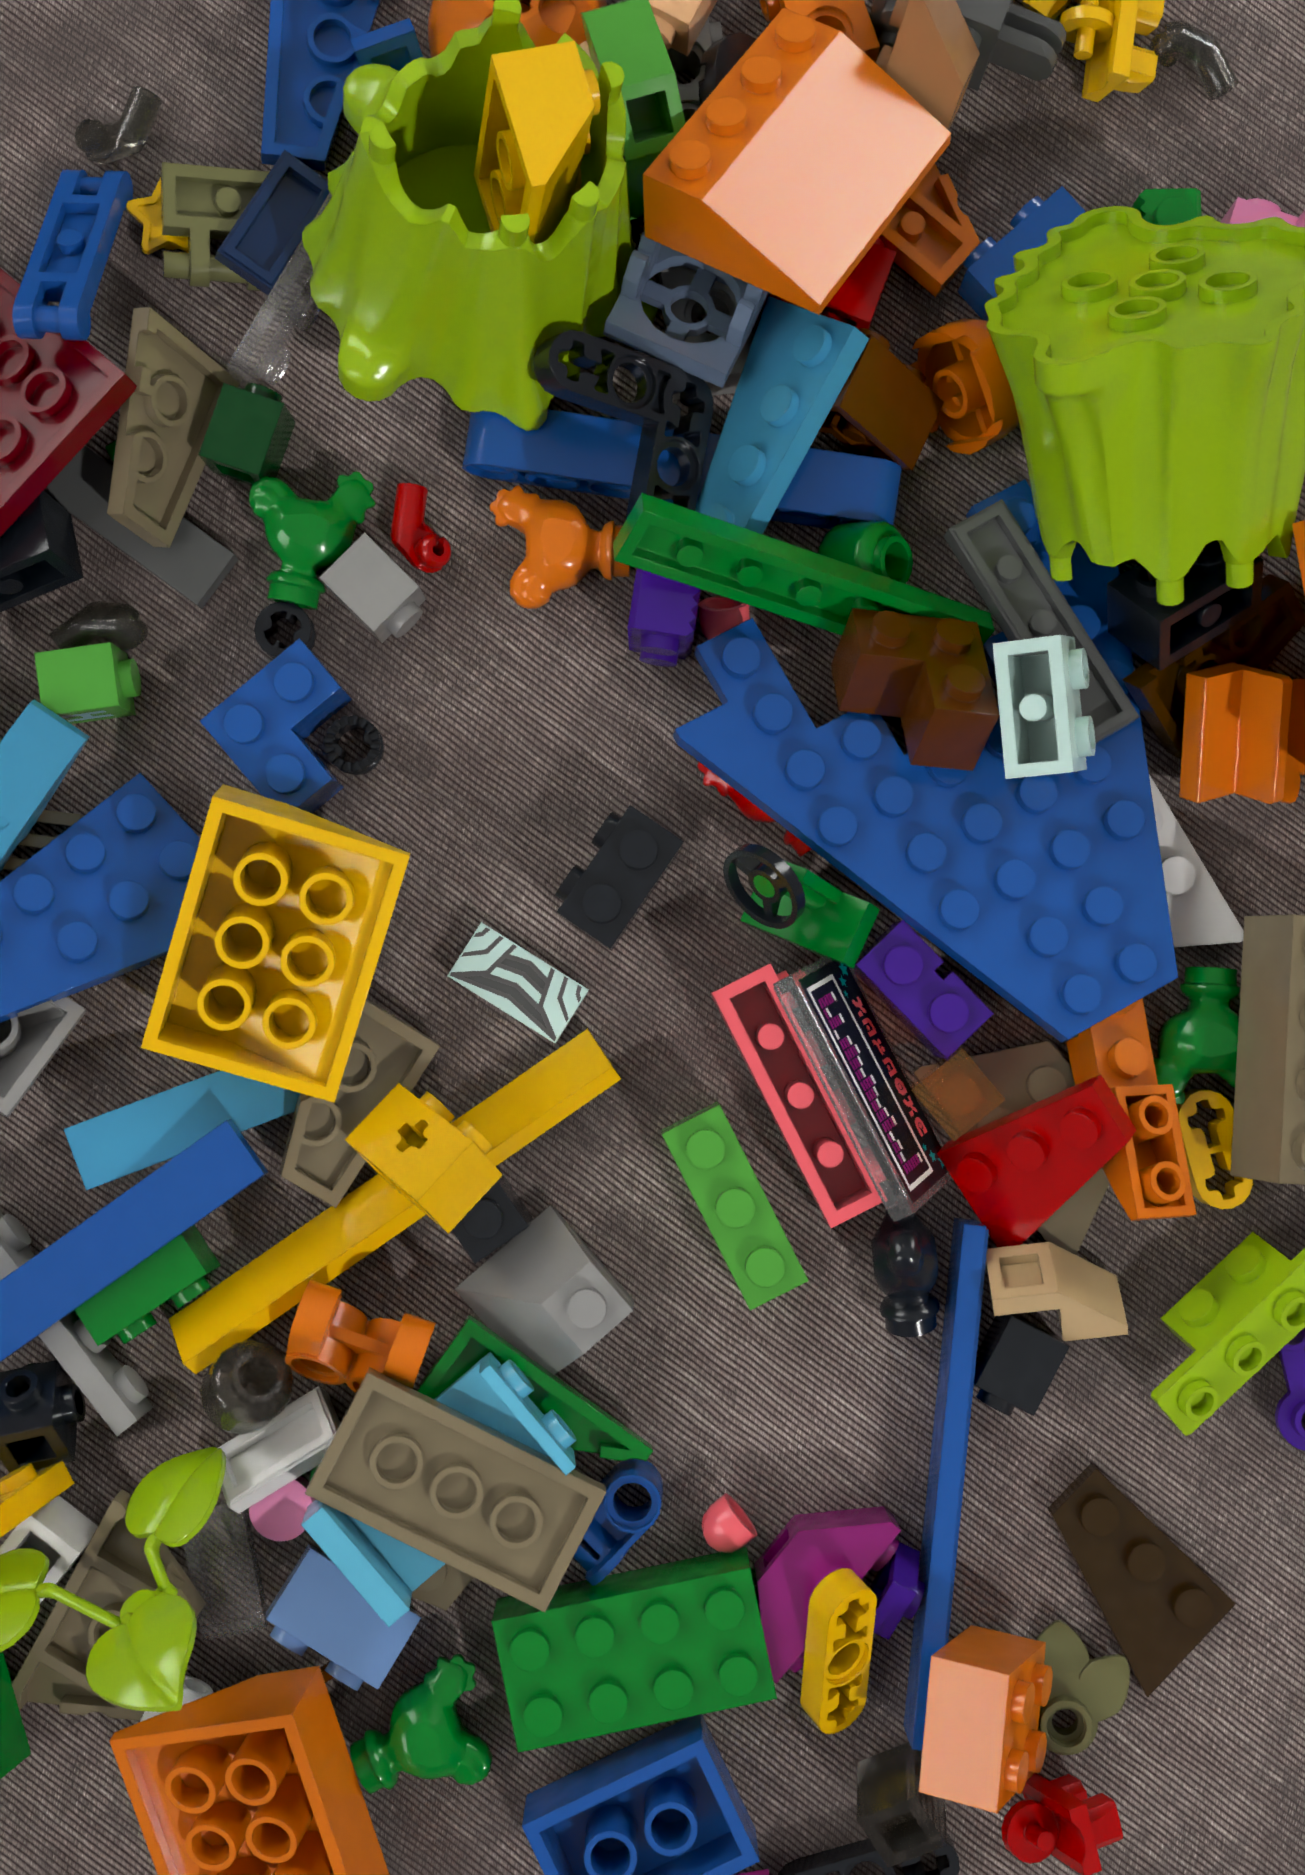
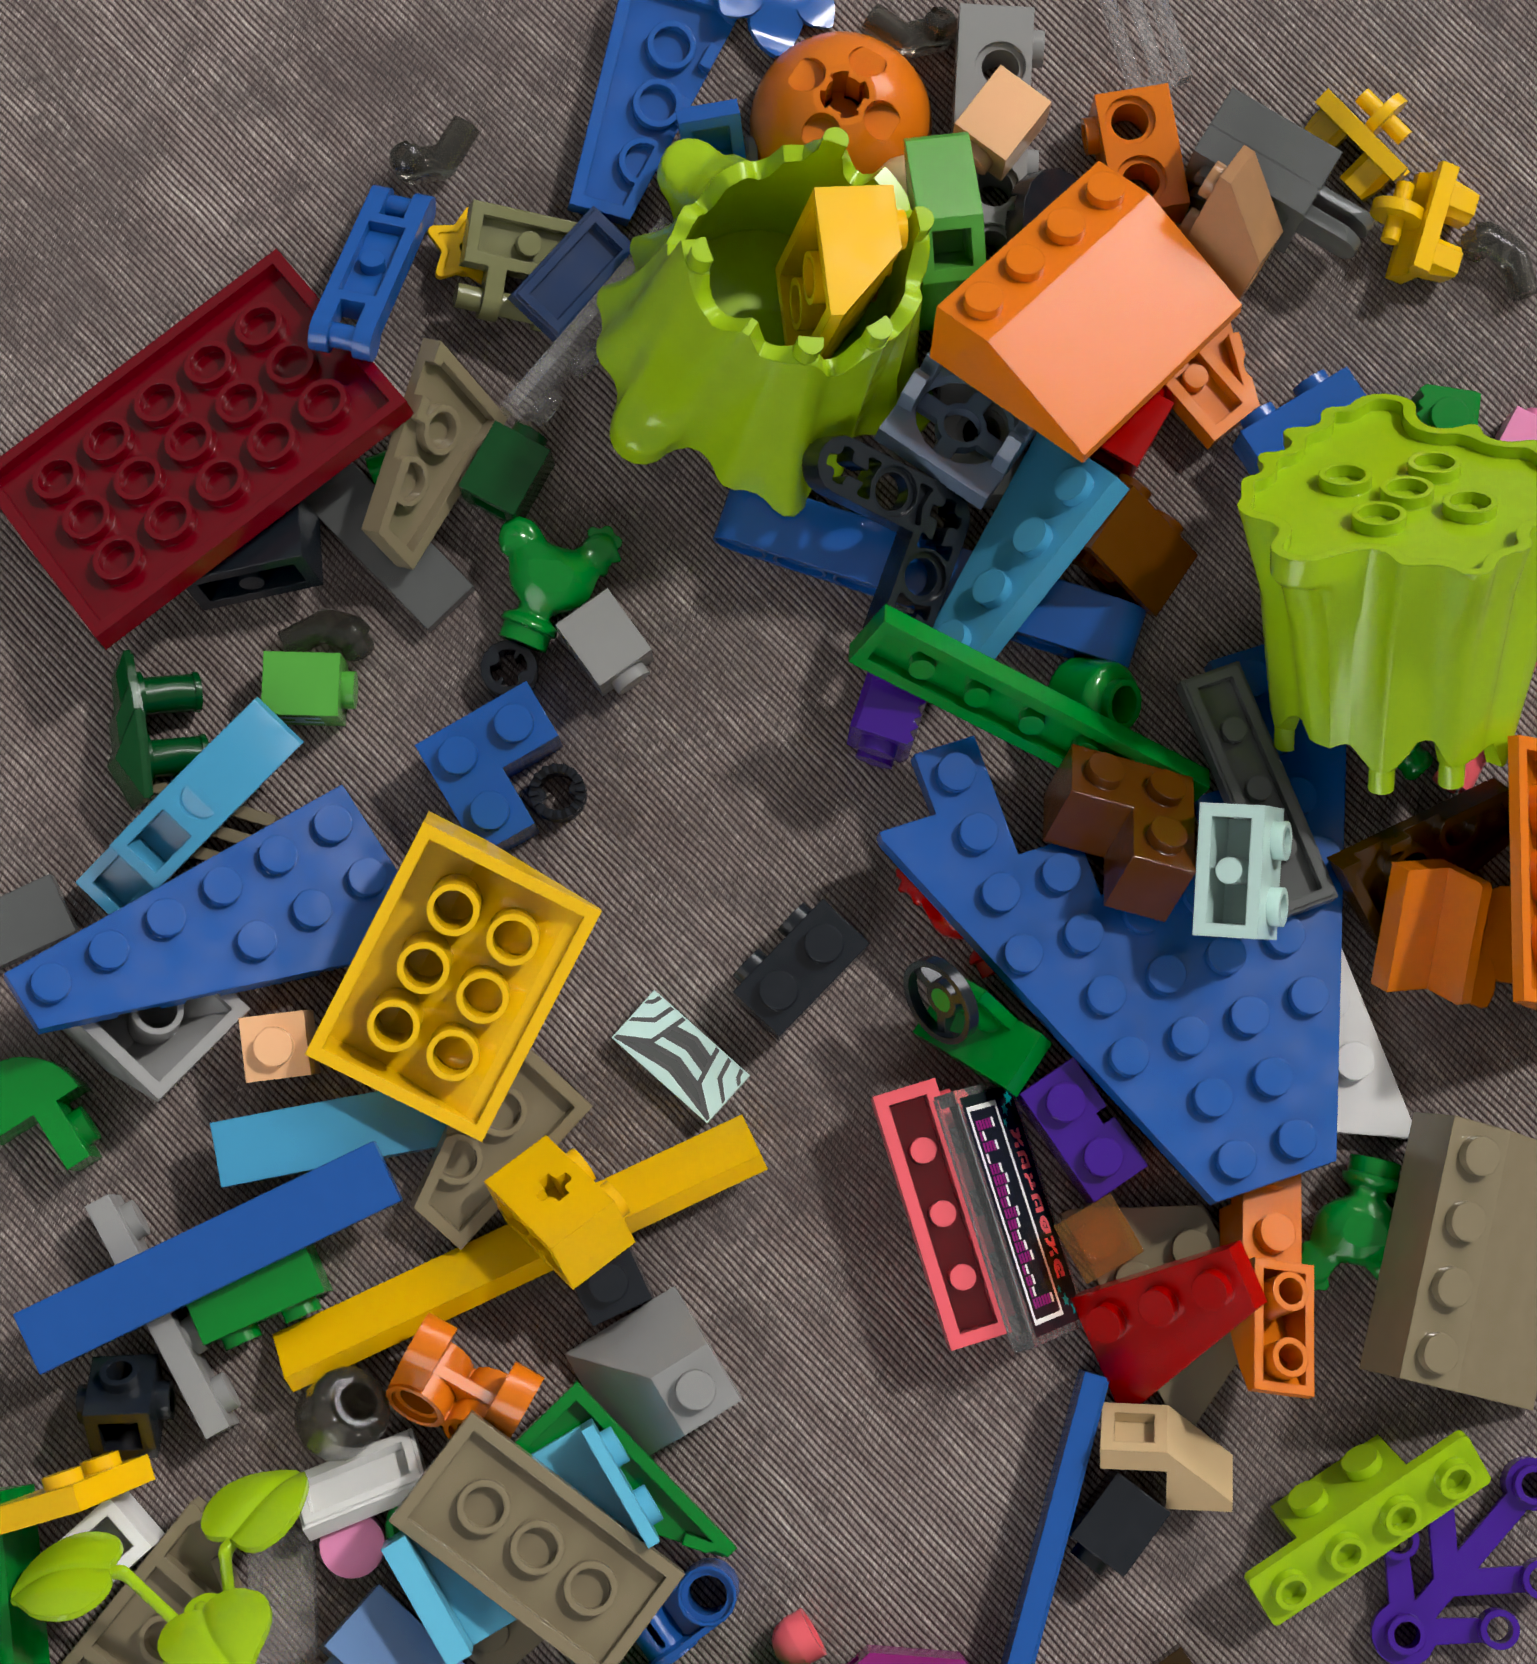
camera: 10 degrees right, 5 degrees down
(114, 1041) = (277, 1044): none -> light nougat brick
(412, 535) = (652, 596): red arm -> none
(558, 546) = (793, 630): orange animal -> none
(721, 614) = (943, 727): coral hinge -> none
(734, 1205) = (859, 1315): bright green brick -> none
(906, 1272) = (1020, 1413): black animal -> none
(970, 380) = (1218, 537): orange cylinder -> none
(1170, 632) = (1410, 809): black brick -> none
(1198, 1151) = (1332, 1343): yellow beam -> none

